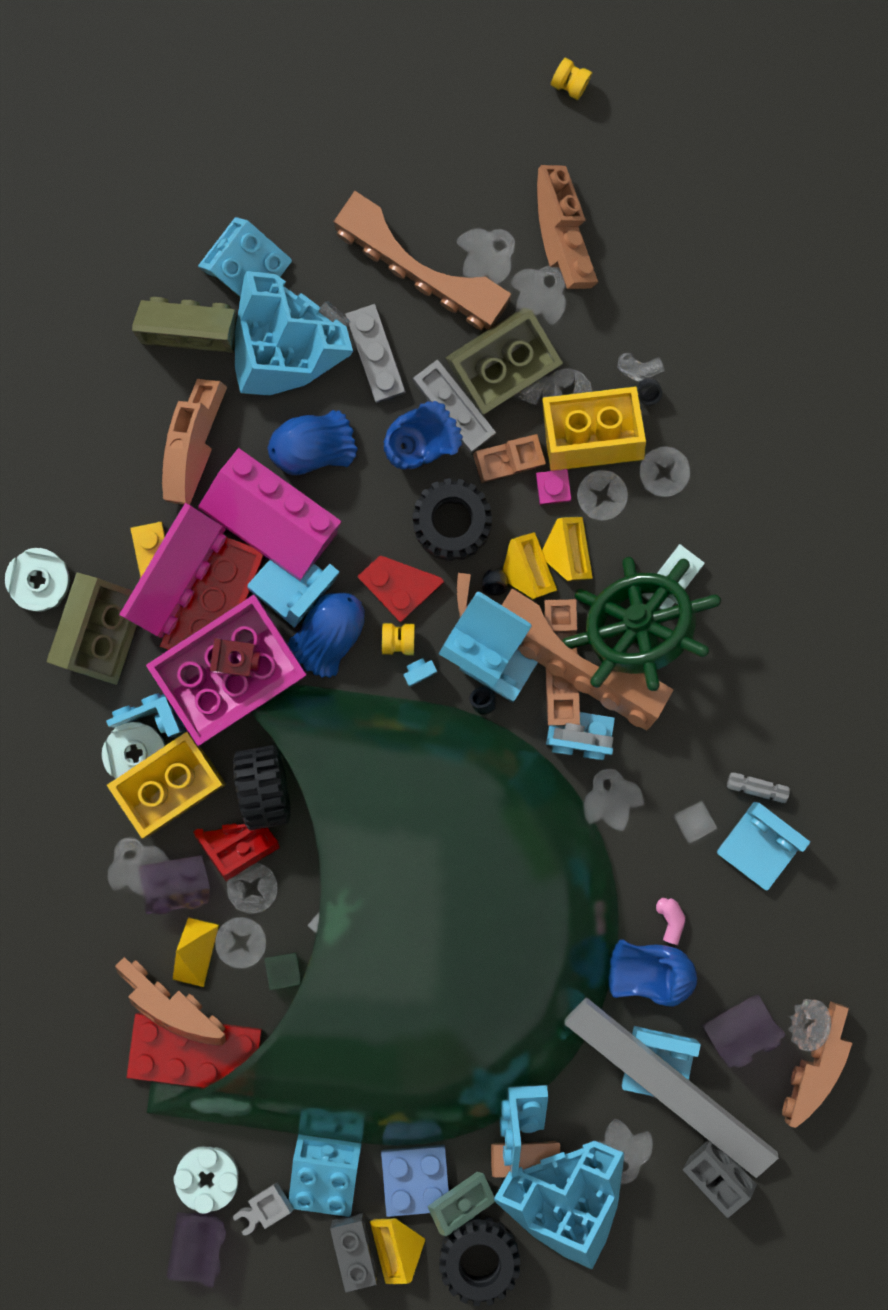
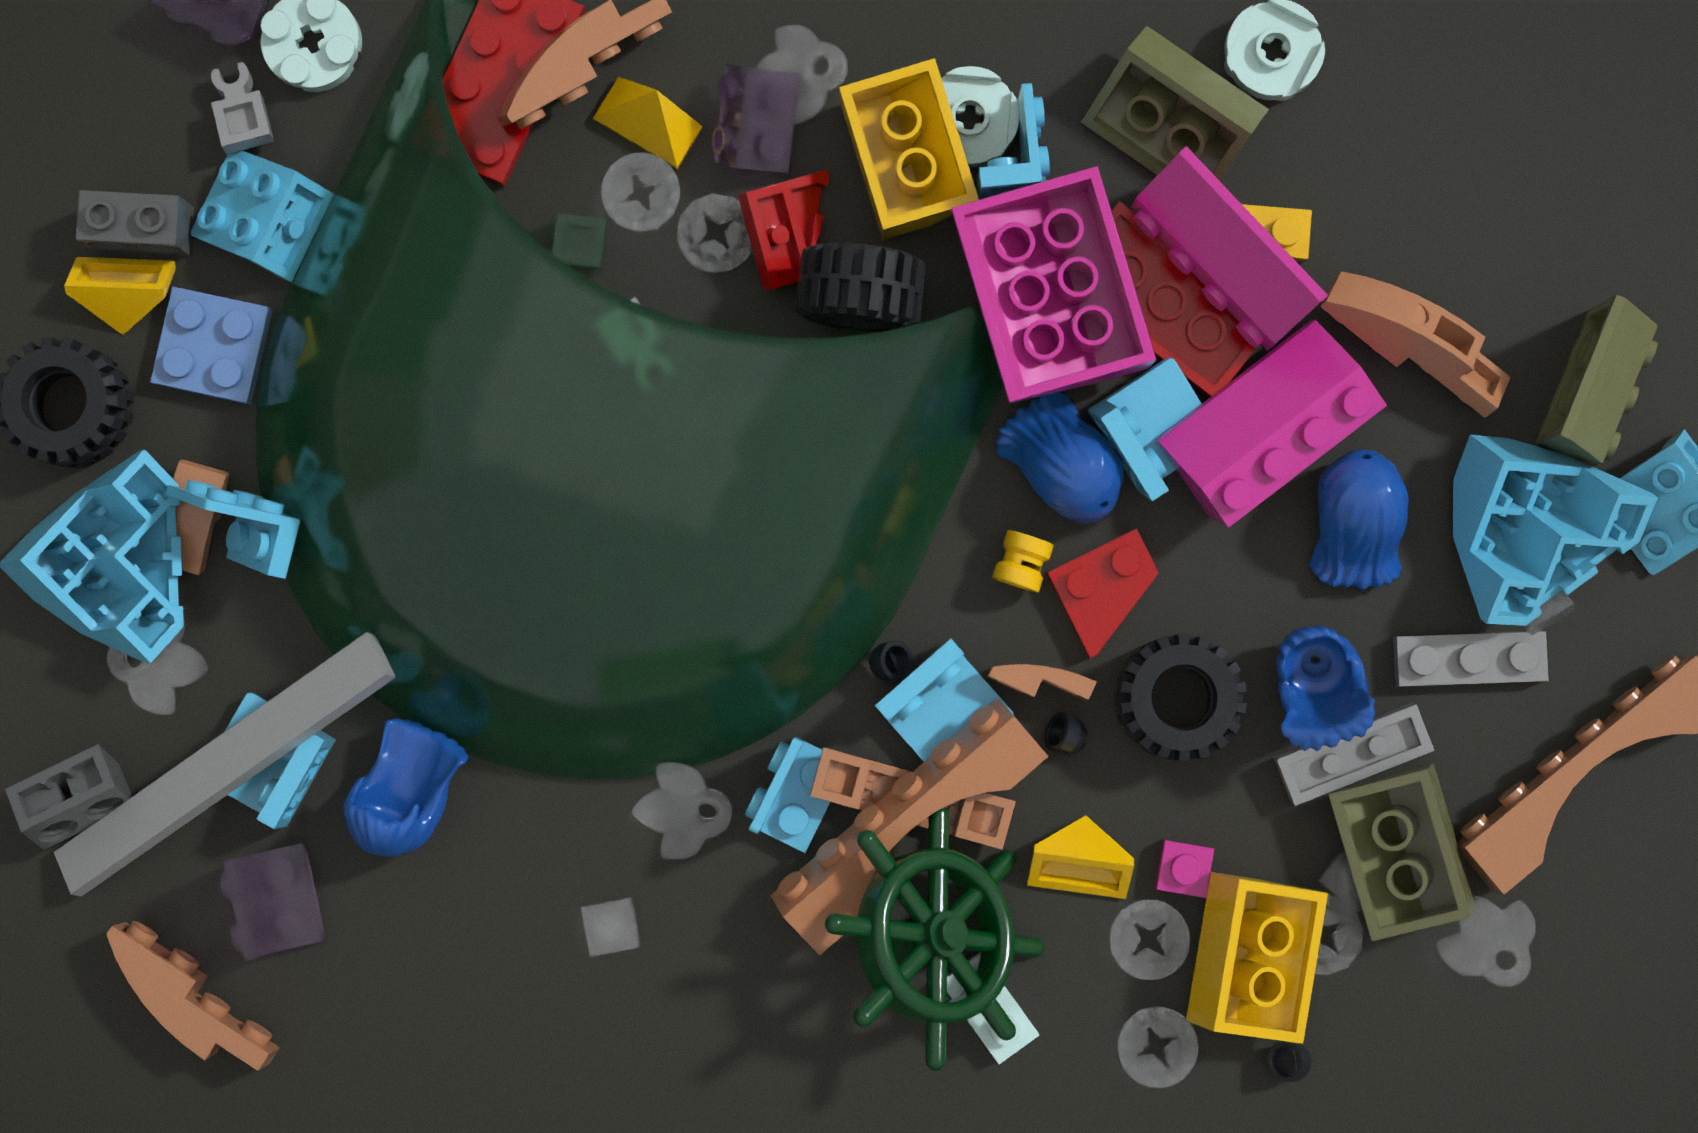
camera: 105 degrees right, 0 degrees up
(221, 658) = (1077, 280): dark red brick -> none
(419, 671) = (964, 578): medium azure plate -> none
(461, 1203) = (154, 401): sand green plate -> none
(483, 257) = (1573, 870): clear plate -> none
(485, 638) = (982, 689): medium azure bracket -> none
(509, 458) = (1248, 814): nougat slope -> none
(527, 567) = (1073, 791): yellow slope -> none
(559, 224) = (1595, 1004): nougat slope -> none
(576, 734) = (796, 785): light grey plate -> none
(636, 370) = (1327, 1053): clear arm -> none
(674, 918) = (475, 850): bright pink arm -> none
(758, 787) = (632, 1039): light grey axle -> none
(761, 845) = (543, 1016): medium azure bracket -> none
(817, 1032) = (235, 1009): clear gear -> none

